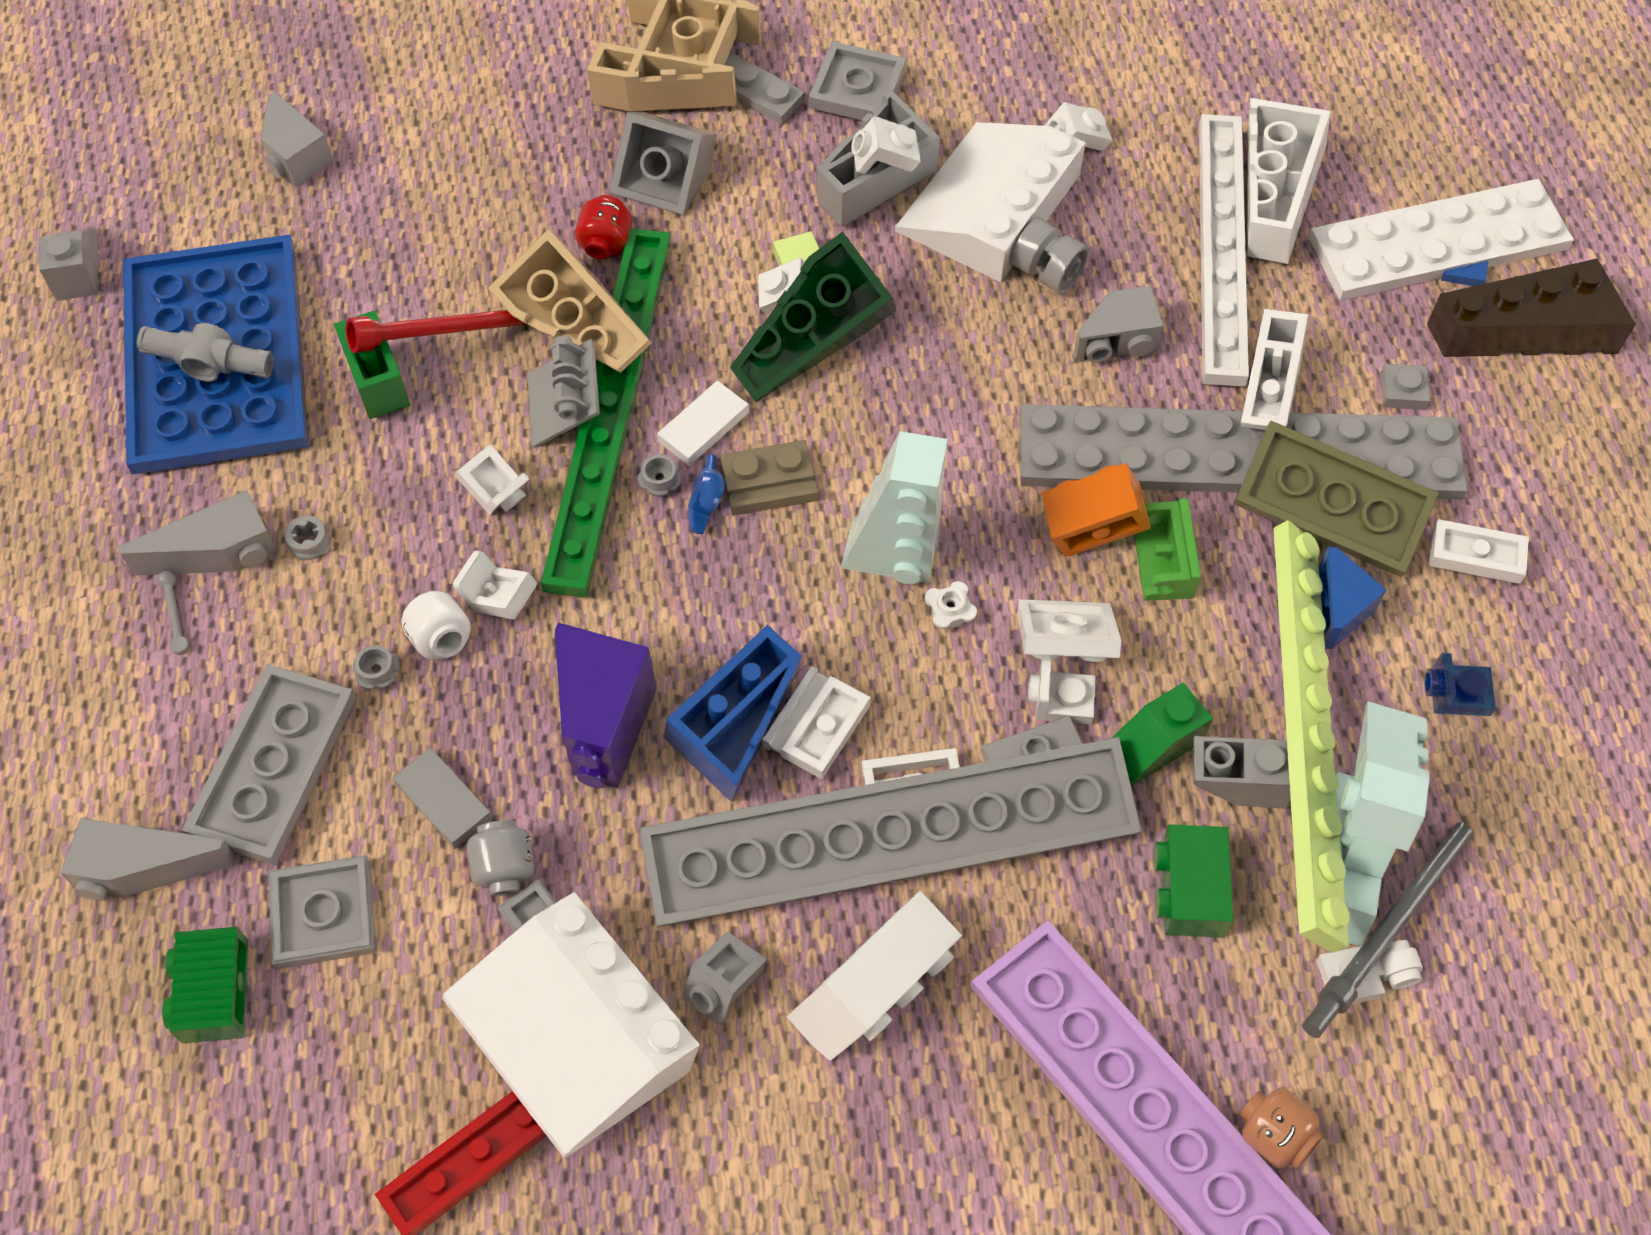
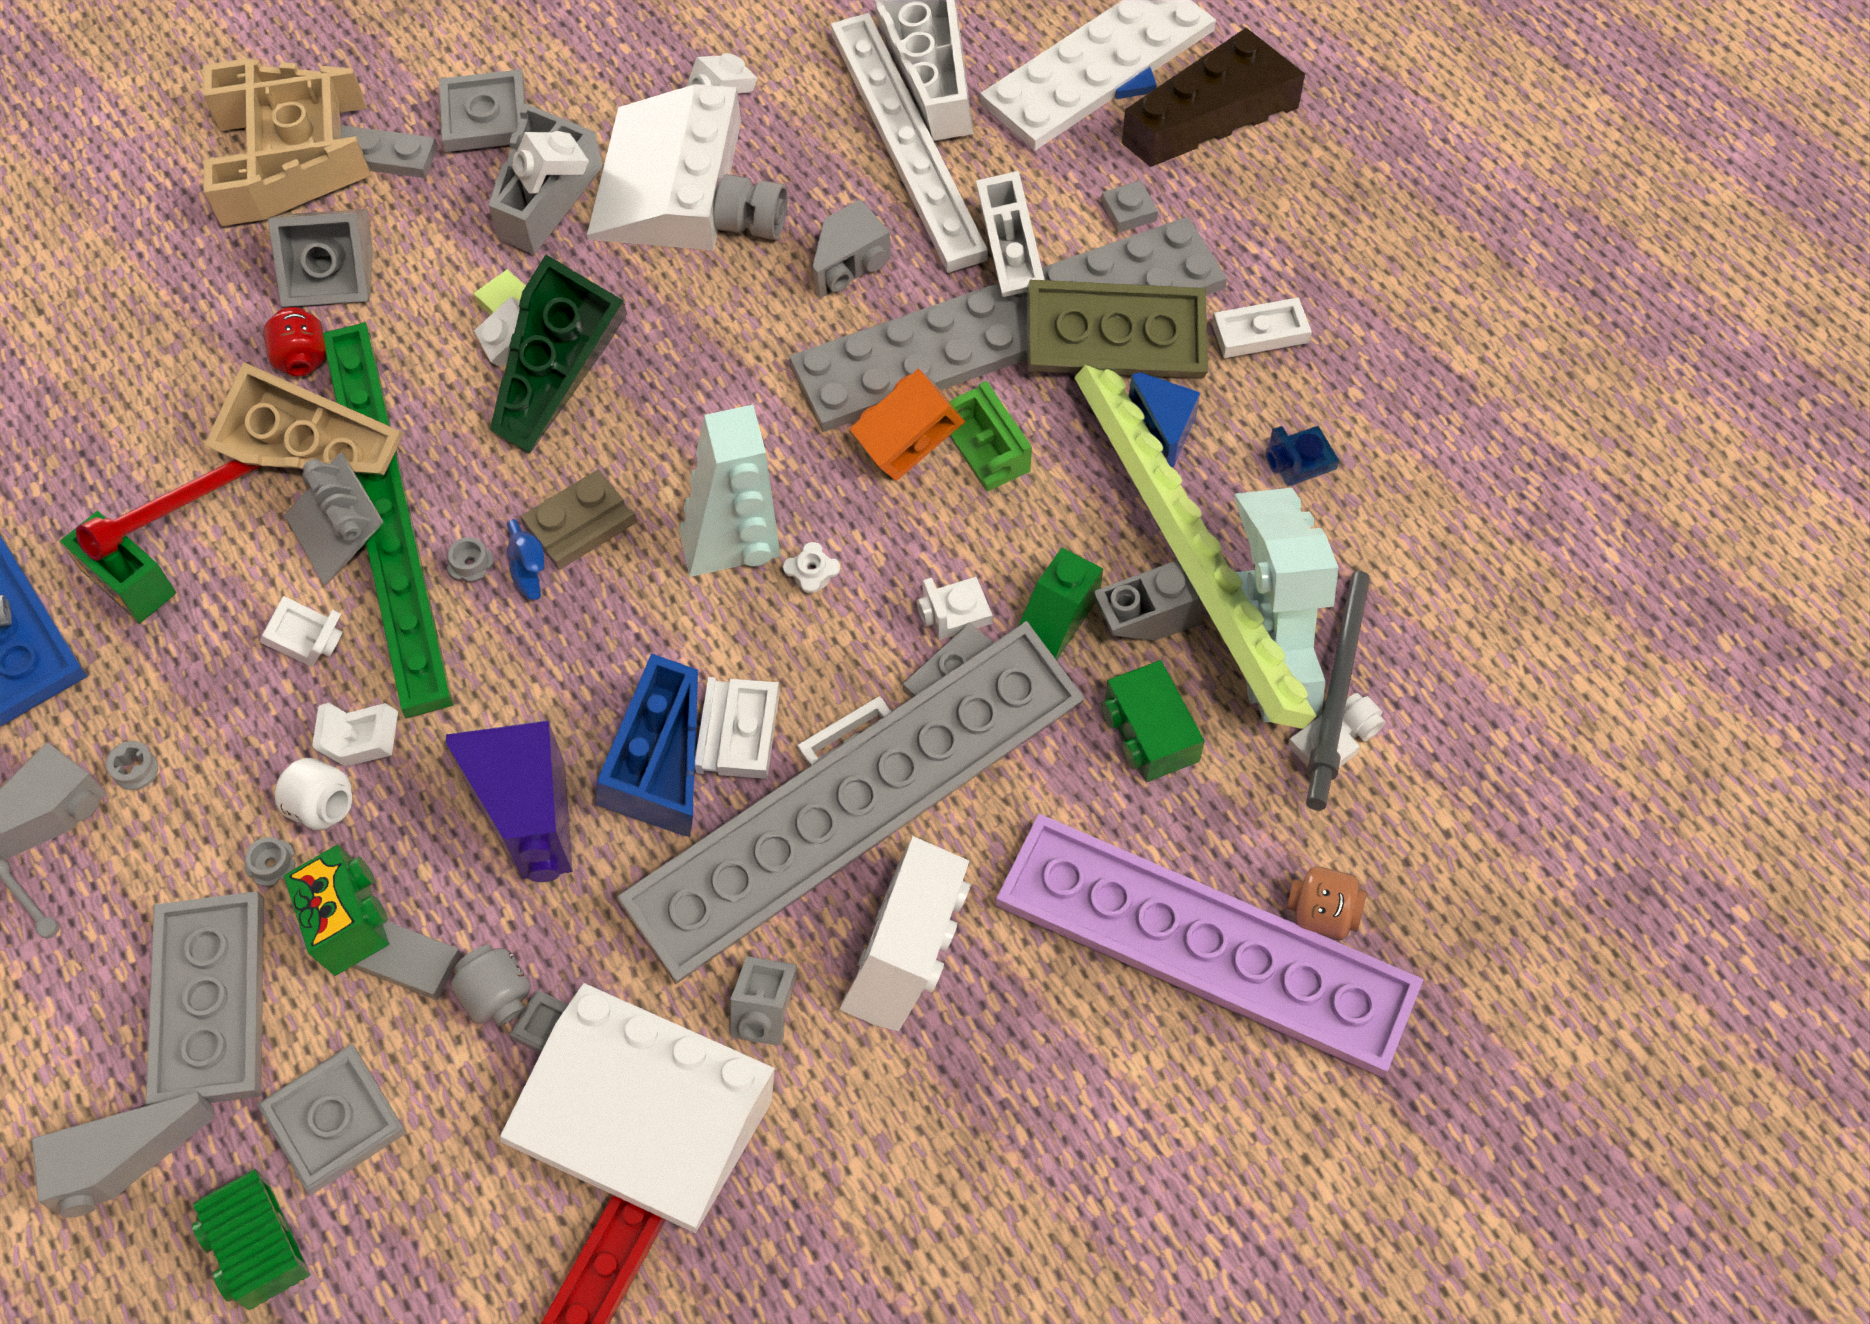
camera: 25 degrees left, 0 degrees up
(406, 734) = (337, 909): none -> green brick
(703, 423) = (487, 493): white tile -> none
(1068, 629) = (933, 543): white plate -> none

